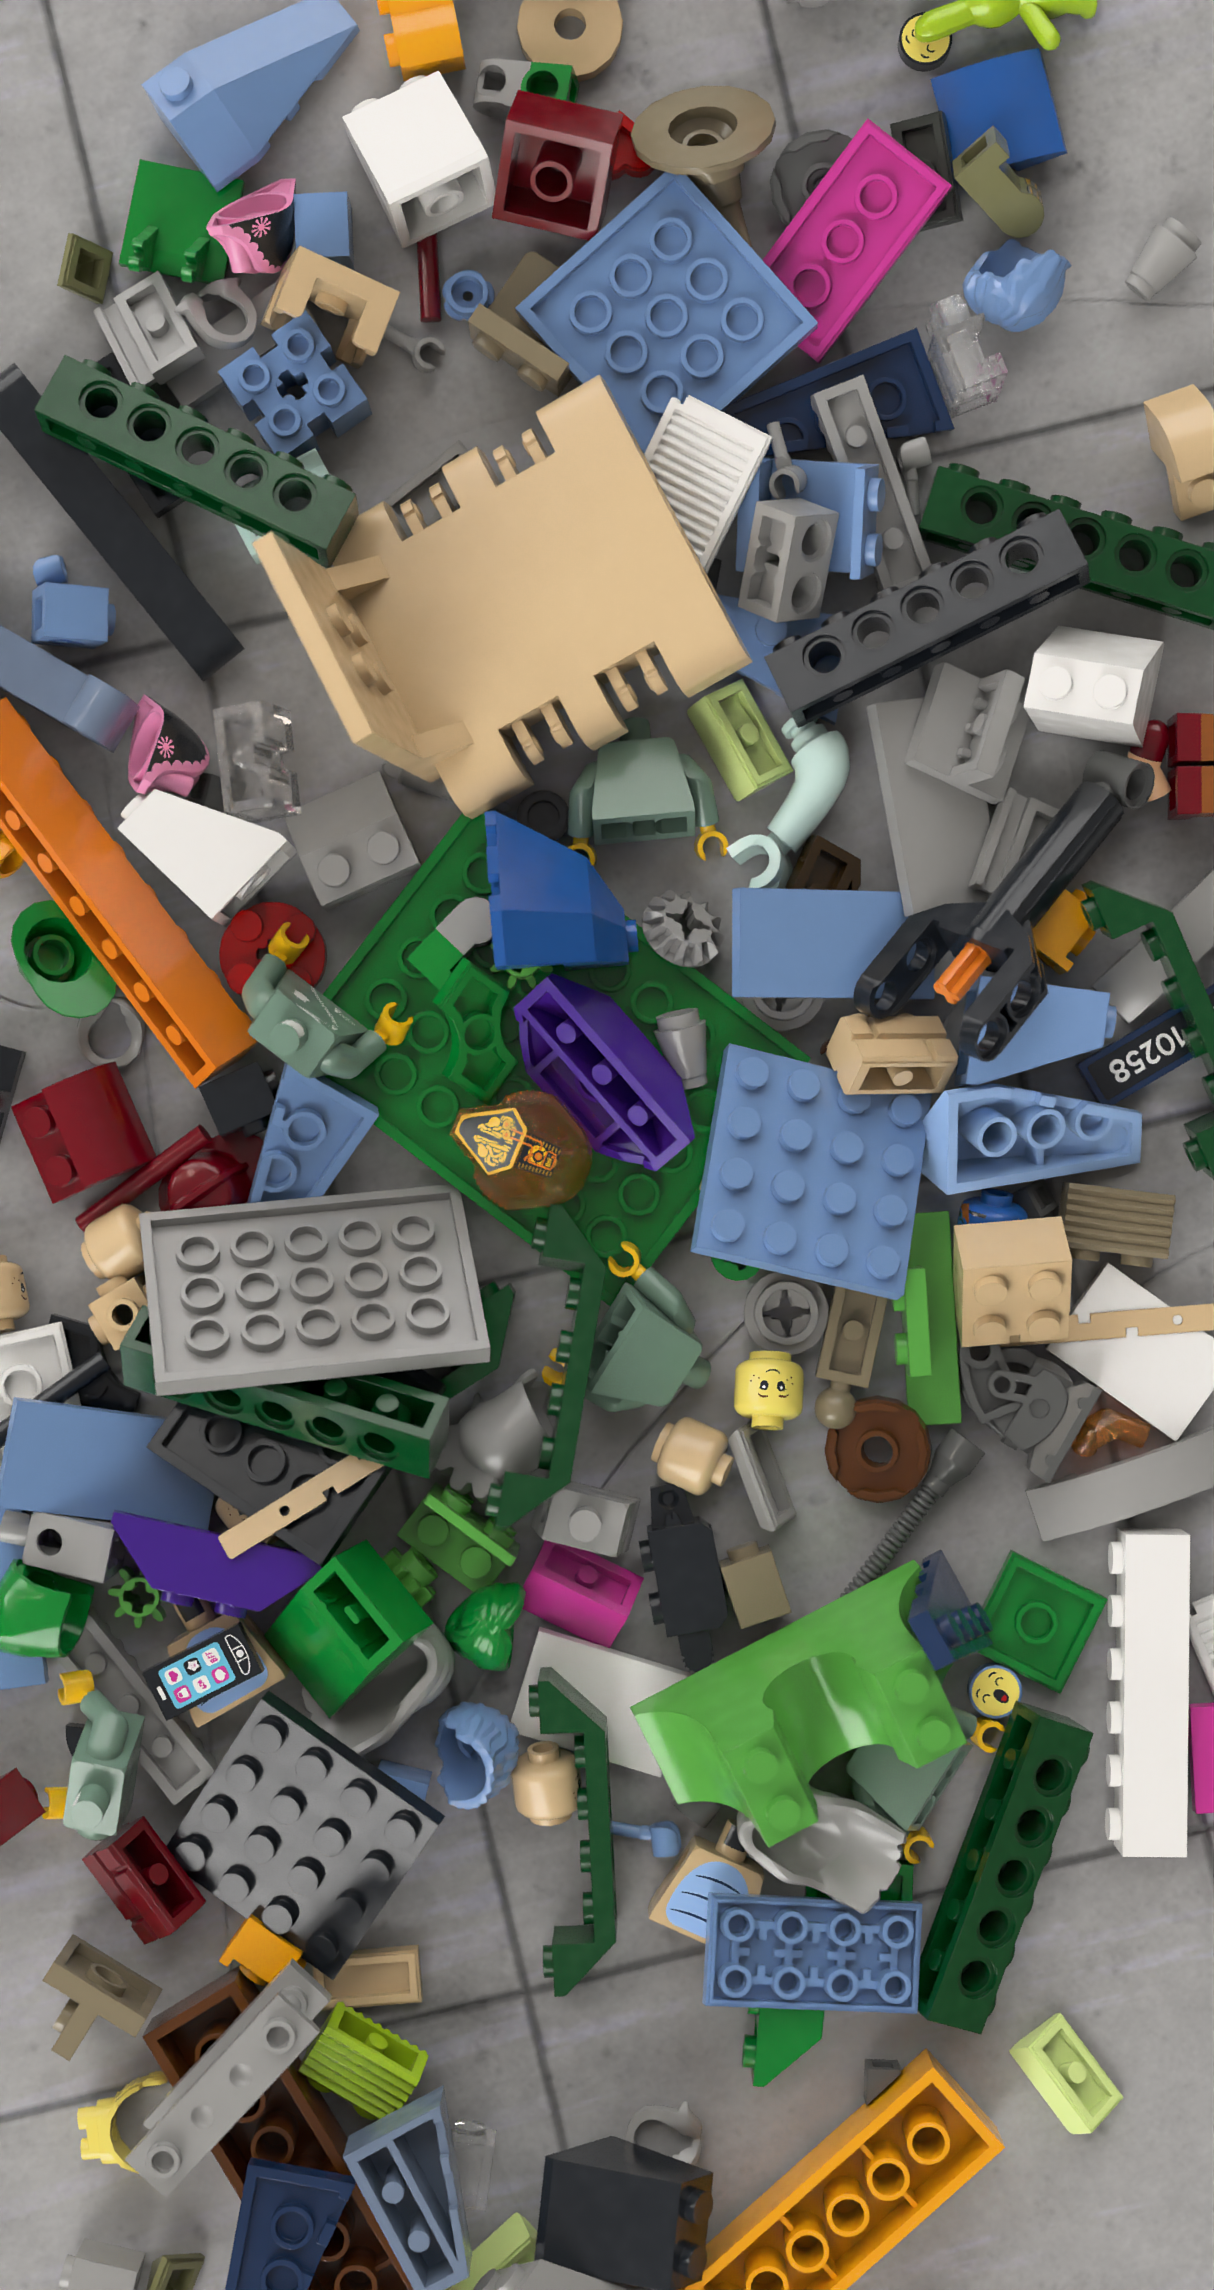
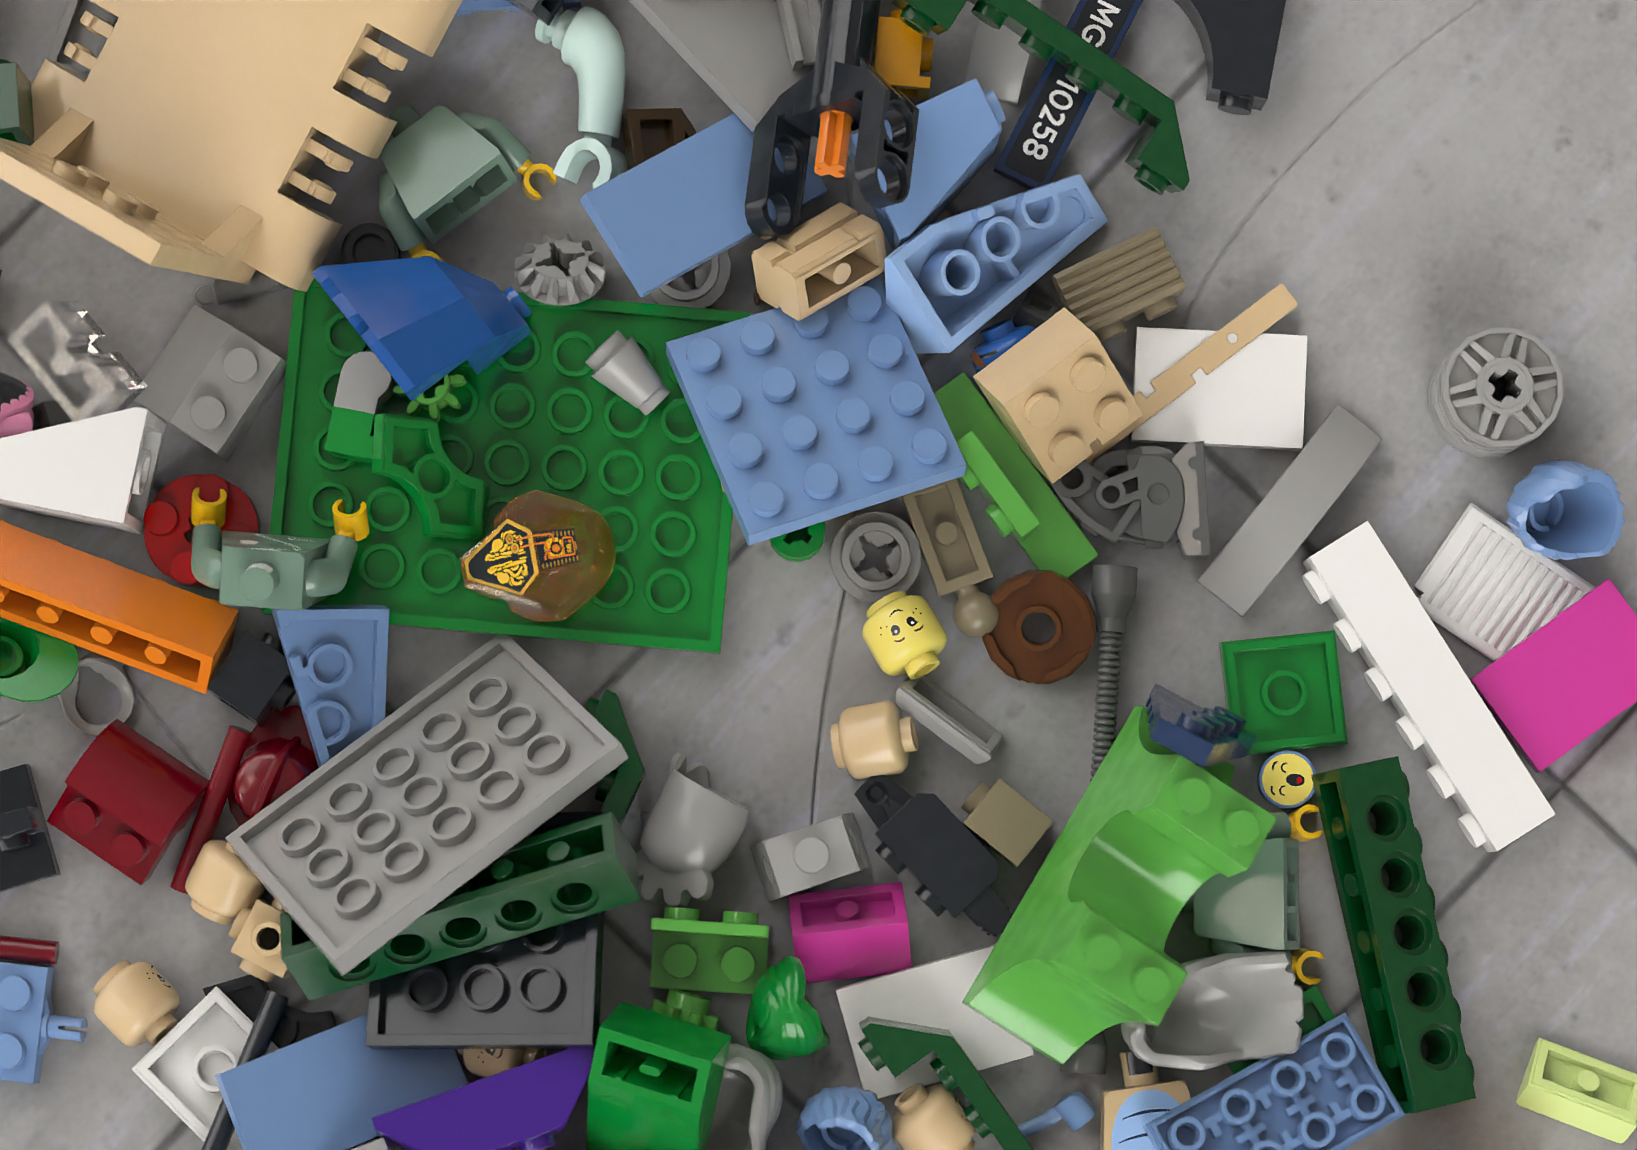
camera: 35 degrees left, 5 degrees down
(299, 1502) = (535, 1001): tan piece -> none
(566, 1249) = (639, 621): dark green slope -> none
(603, 1072) = (567, 440): dark purple wedge -> none
(641, 1344) = (761, 671): sand green torso -> none
(739, 740) = (503, 72): yellowish green slope -> none
(1106, 1426) = (1231, 475): clear orange arm -> none

